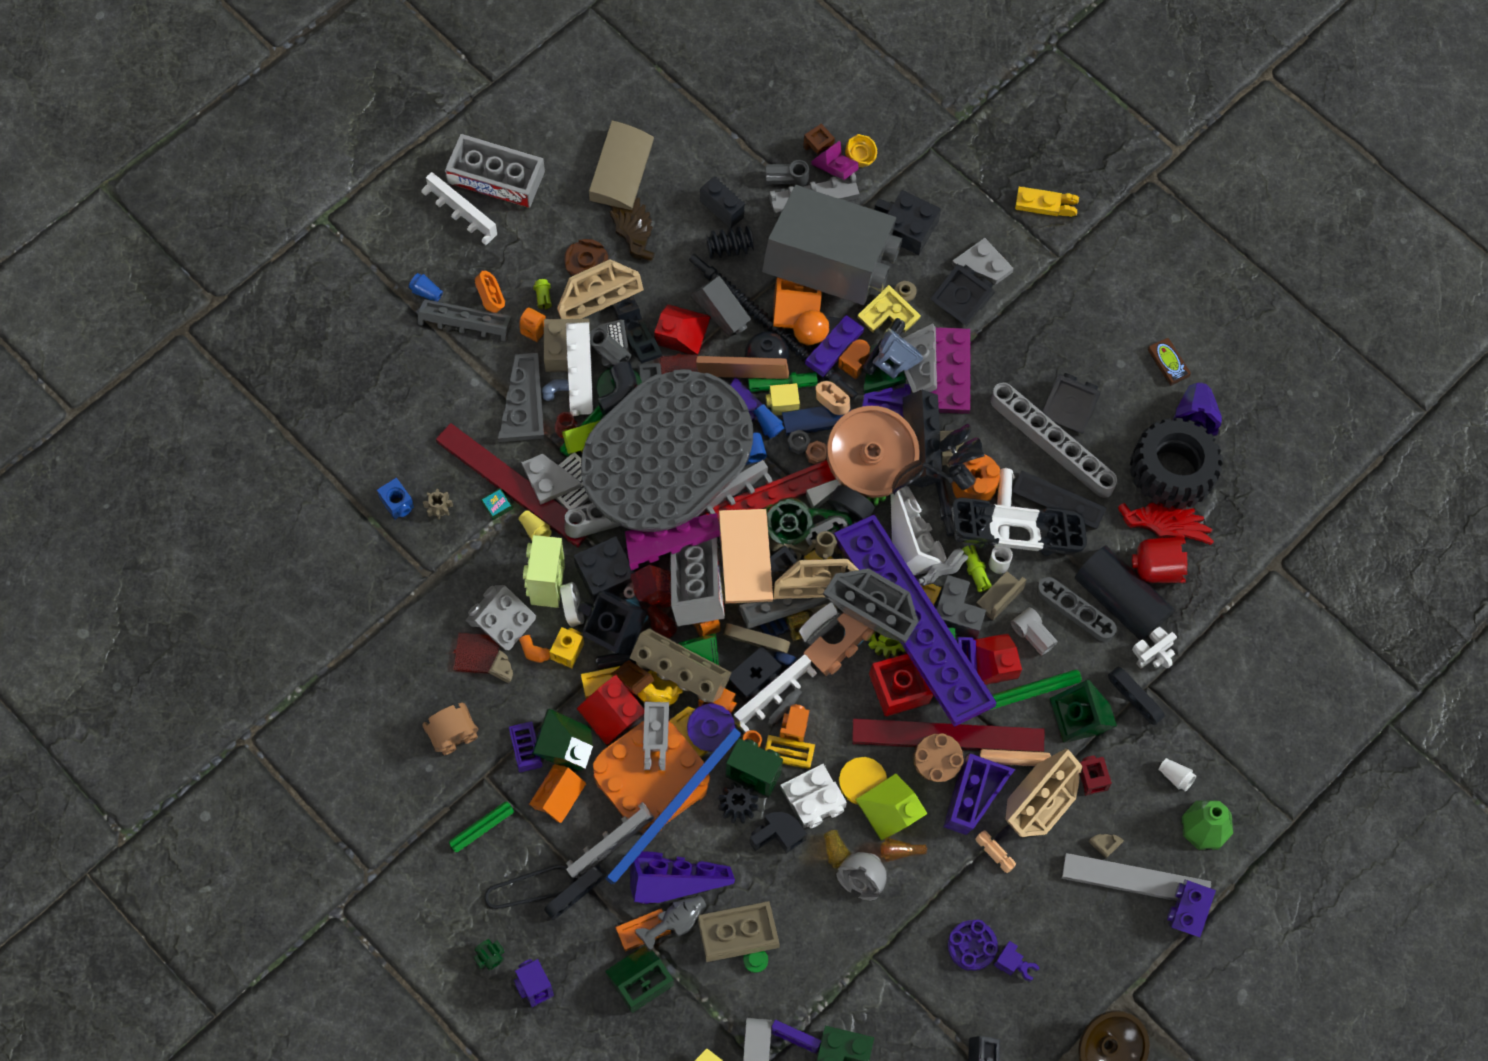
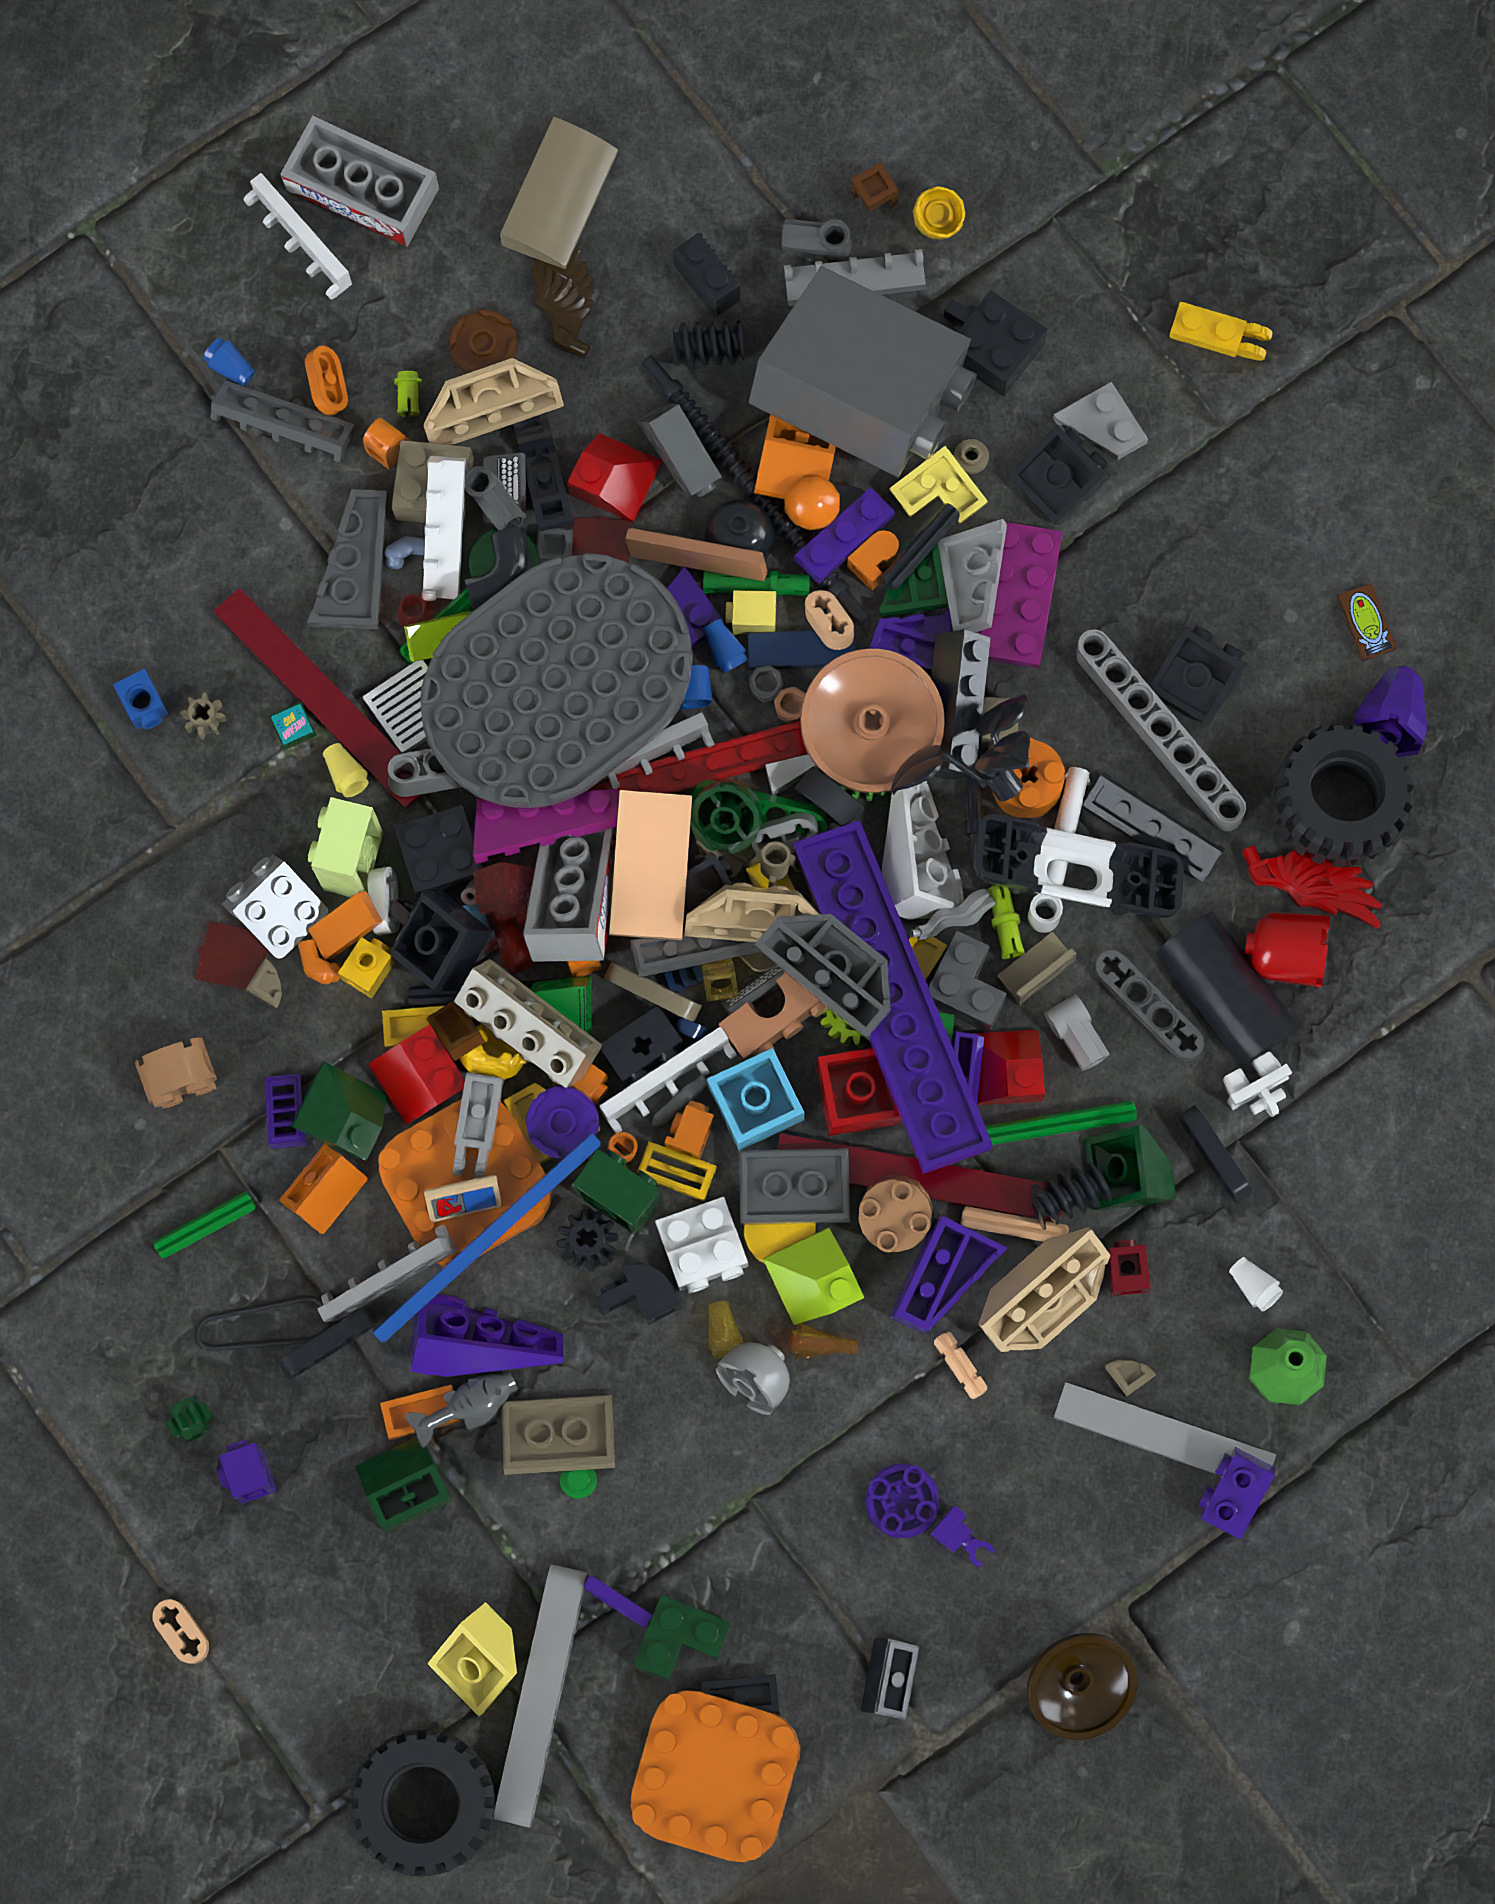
camera: 15 degrees right, 10 degrees up
(548, 478) = (375, 697): light grey wing -> none
(549, 622) = (345, 925): none -> orange tile
(653, 783) = (462, 1198): none -> slope
(817, 620) = (744, 978): white sticker -> none
(834, 697) = (755, 1099): none -> medium azure brick
(836, 163) = (895, 230): magenta slope -> none
(868, 750) = (794, 1186): none -> dark grey tile
(898, 351) = (939, 561): sand blue piece -> none
(1047, 729) = (1068, 1193): none -> black piece

